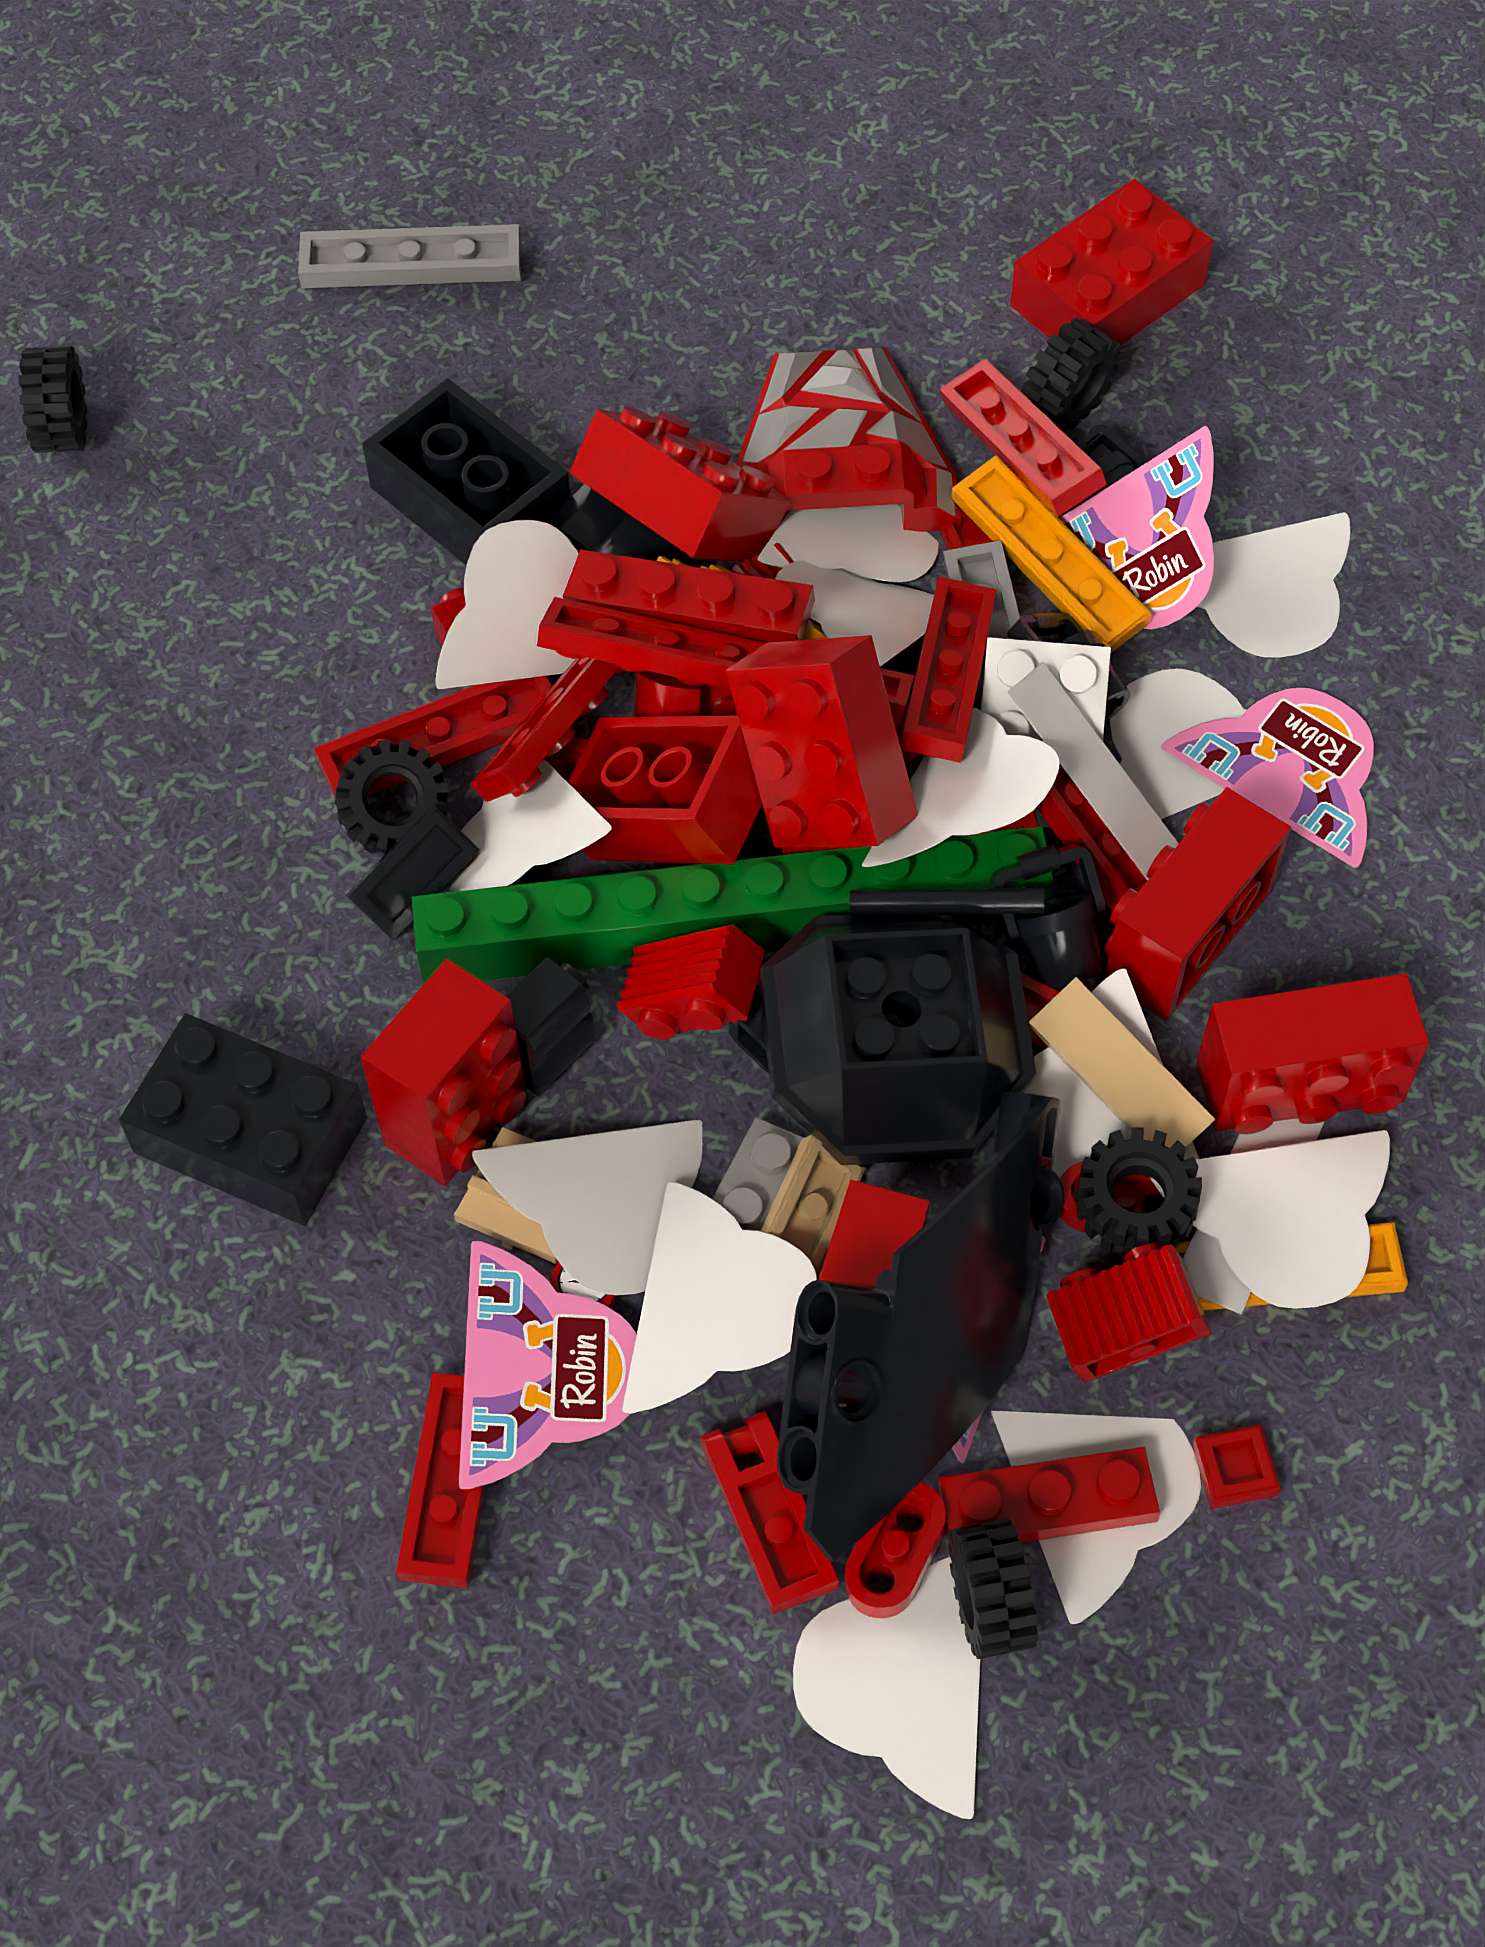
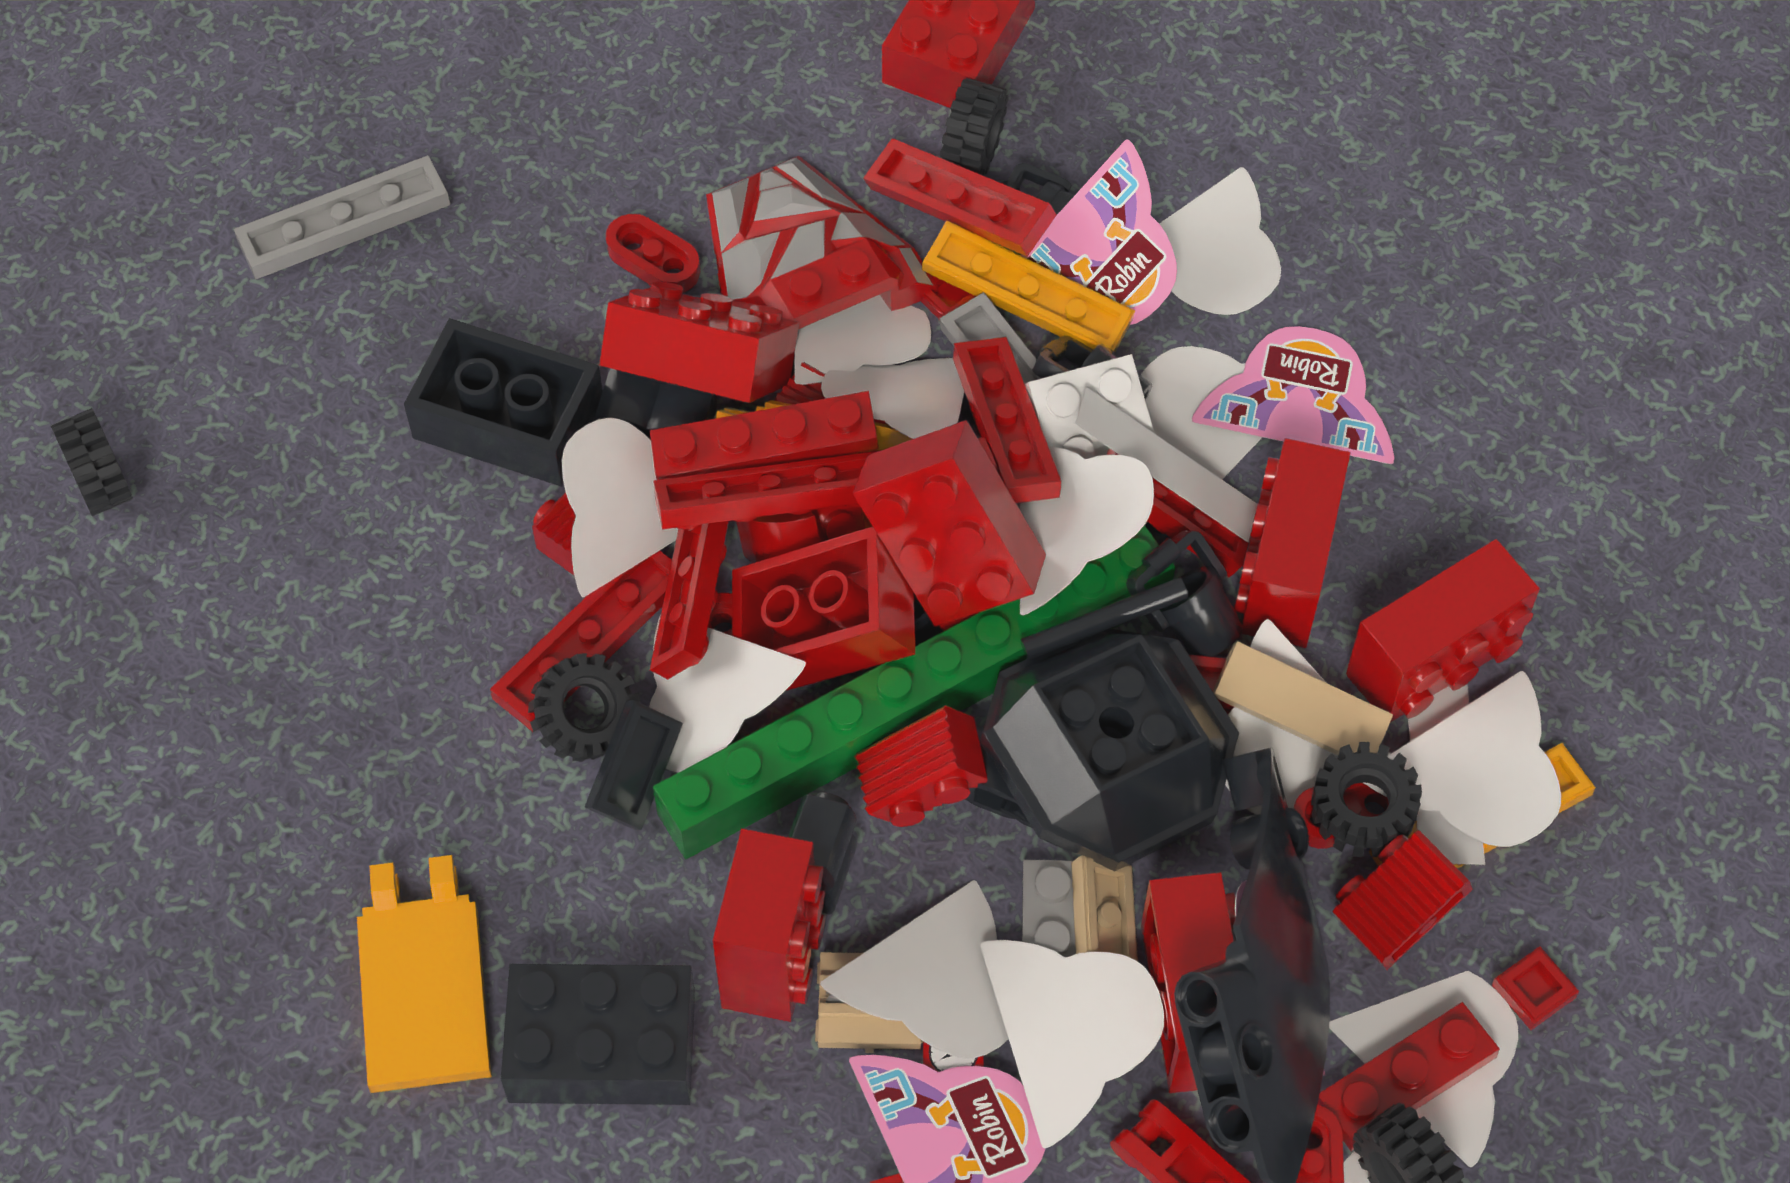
camera: 25 degrees left, 0 degrees up
(109, 1001) = (422, 983): none -> light orange tile
(695, 394) = (657, 254): none -> red plate

